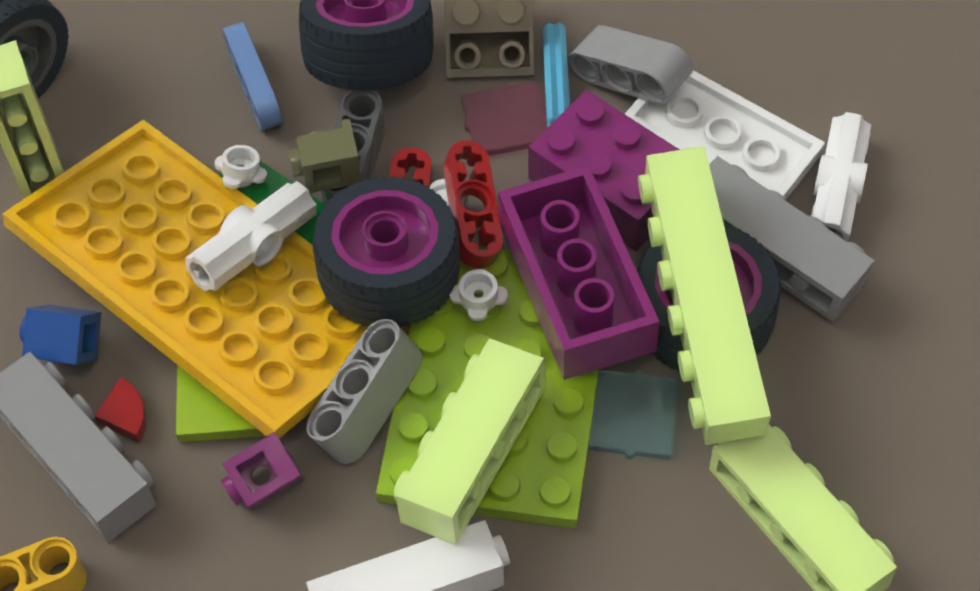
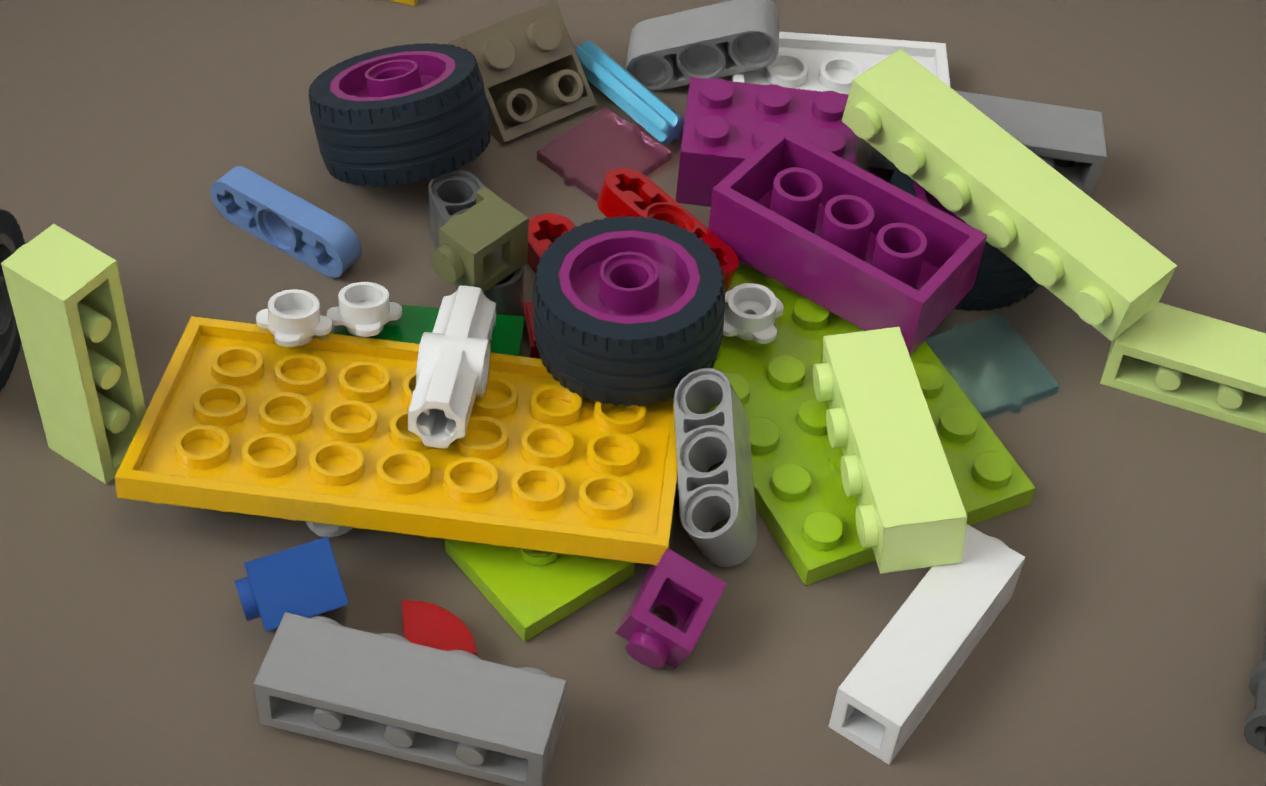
camera: 40 degrees left, 10 degrees down
(191, 153) = (294, 318): none -> white plate
(842, 173) = (975, 59): white piece -> none

